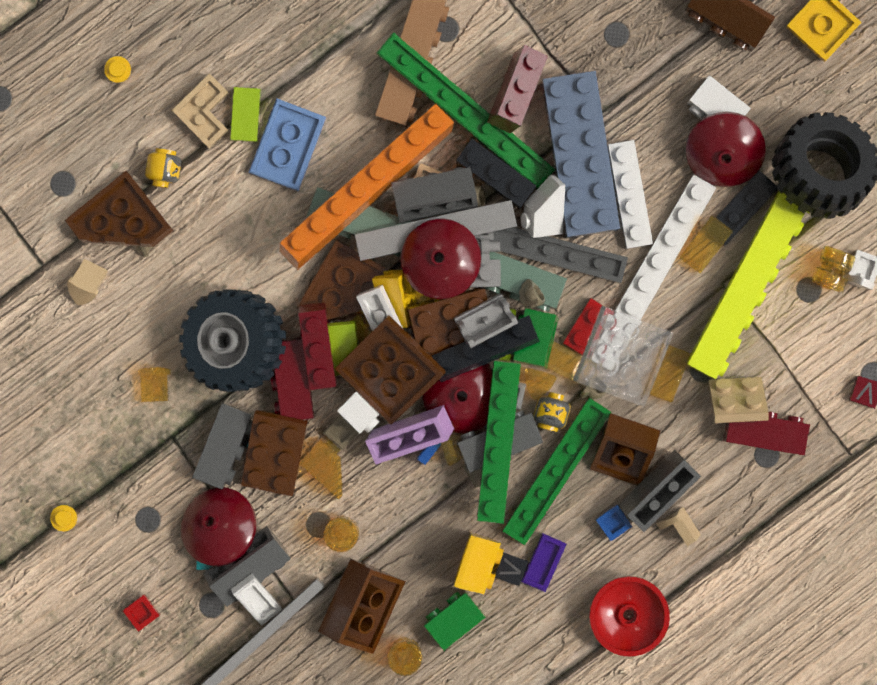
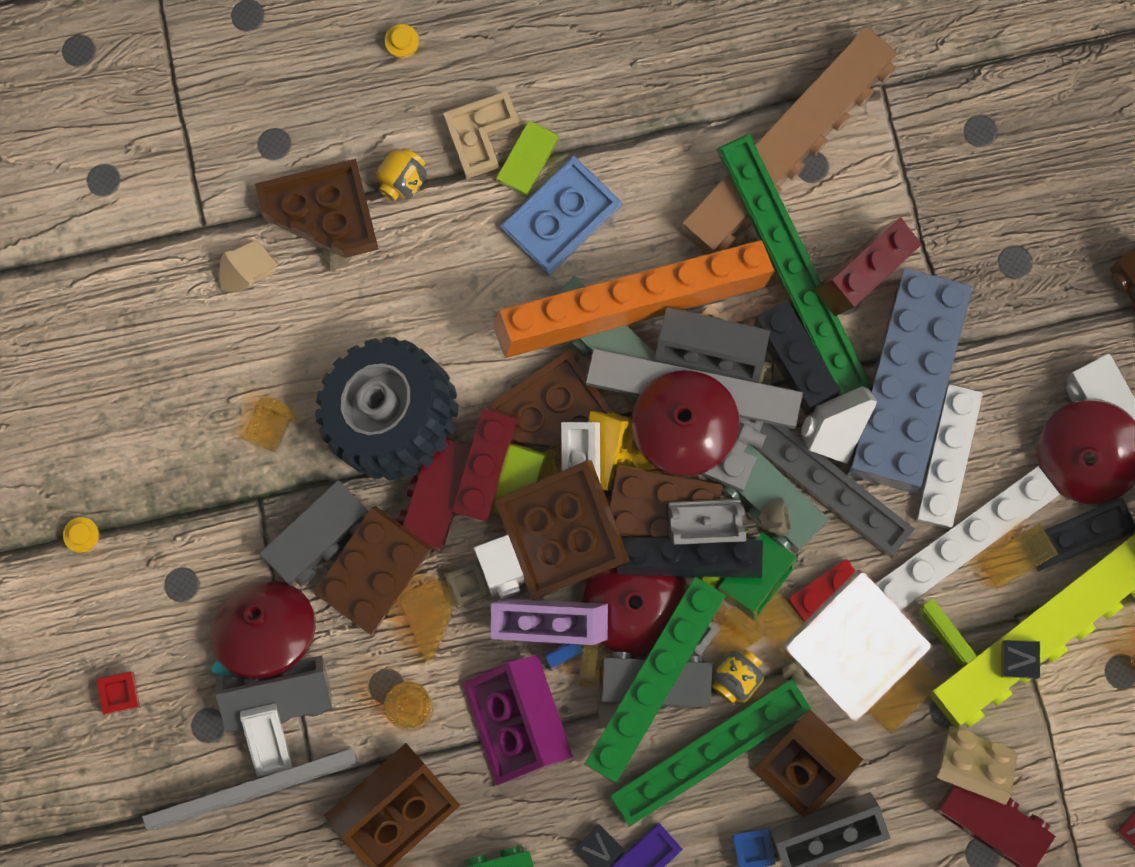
camera: 25 degrees right, 10 degrees down
(418, 508) = (517, 719): none -> magenta slope
(477, 564) = (561, 821): yellow slope -> none
(680, 318) = (947, 633): none -> lime tile
(737, 317) = (1020, 659): none -> black tile

